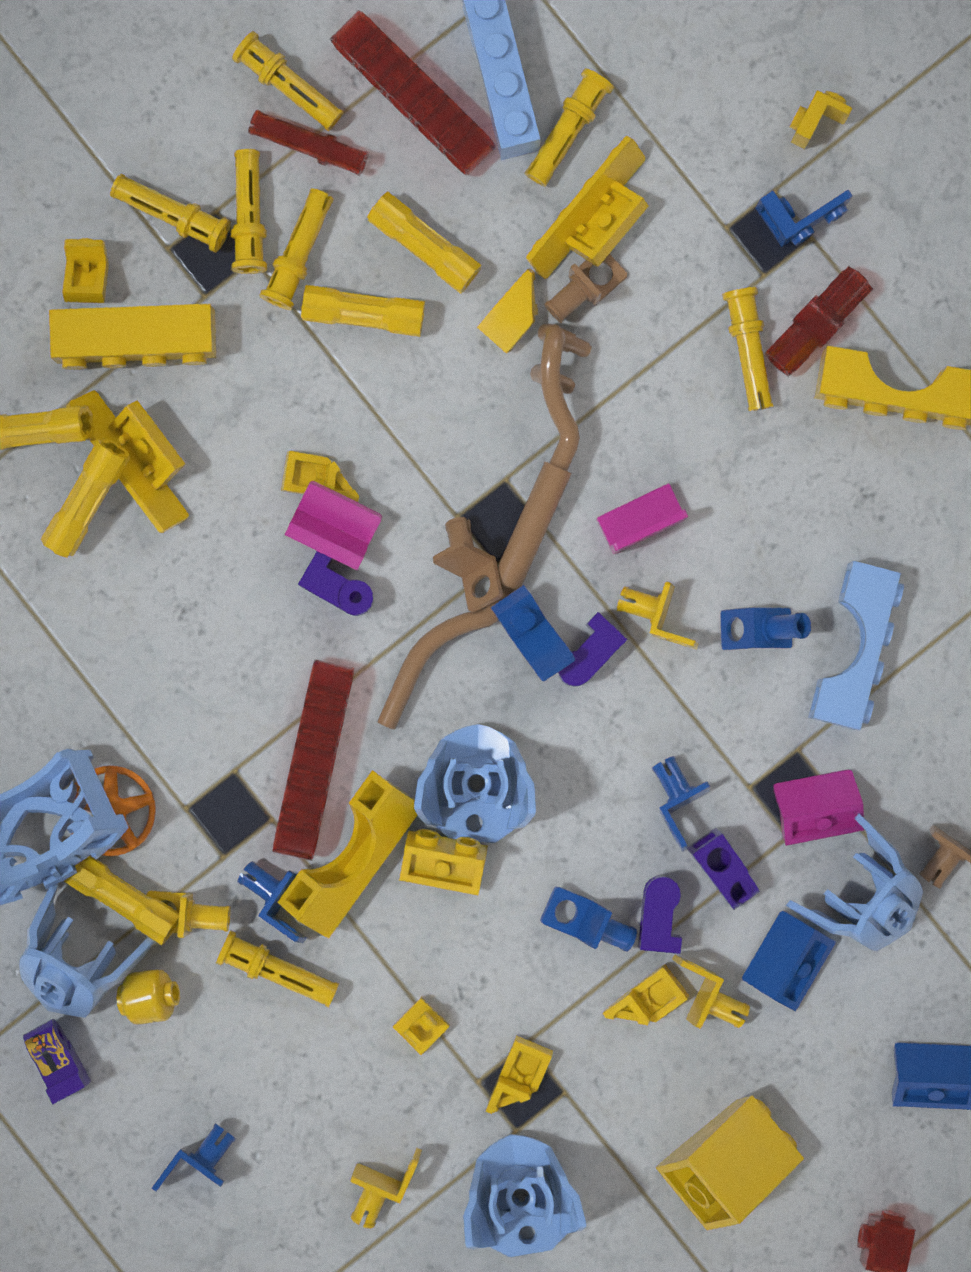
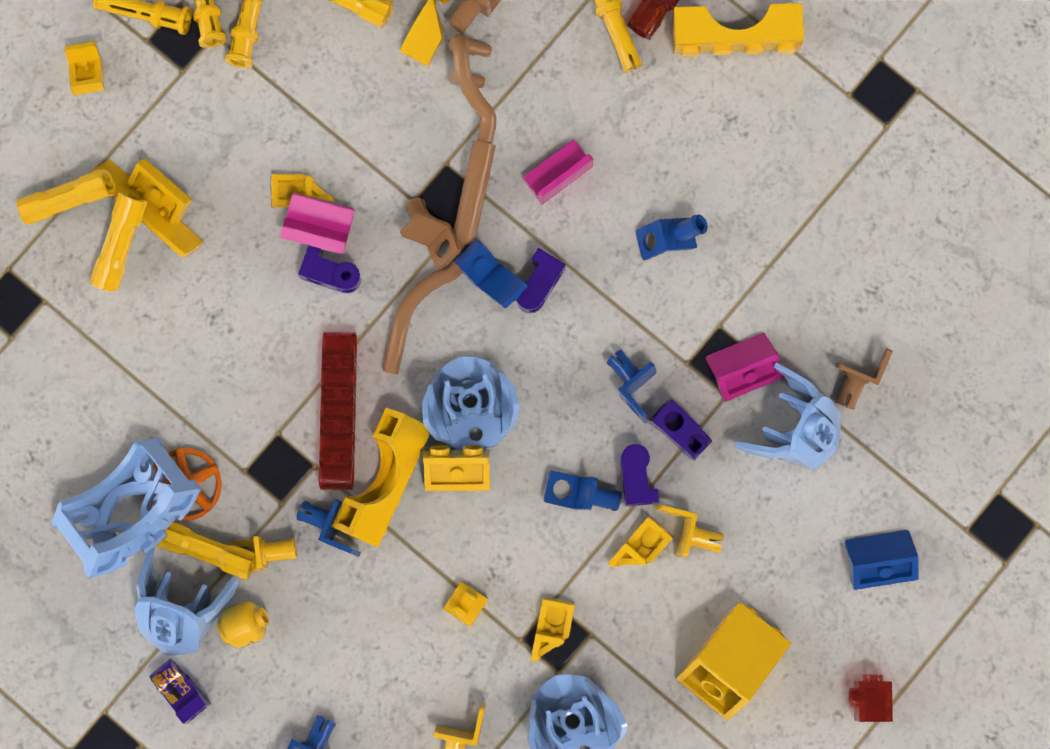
camera: 10 degrees left, 5 degrees down
(132, 334) = (131, 110): yellow brick -> none
(258, 962) = (326, 579): yellow pin -> none
(388, 314) = (285, 57): yellow axle -> none
(655, 610) = (584, 238): yellow bracket -> none
(788, 960) = (746, 491): blue panel -> none
(869, 596) = (748, 195): light blue arch -> none

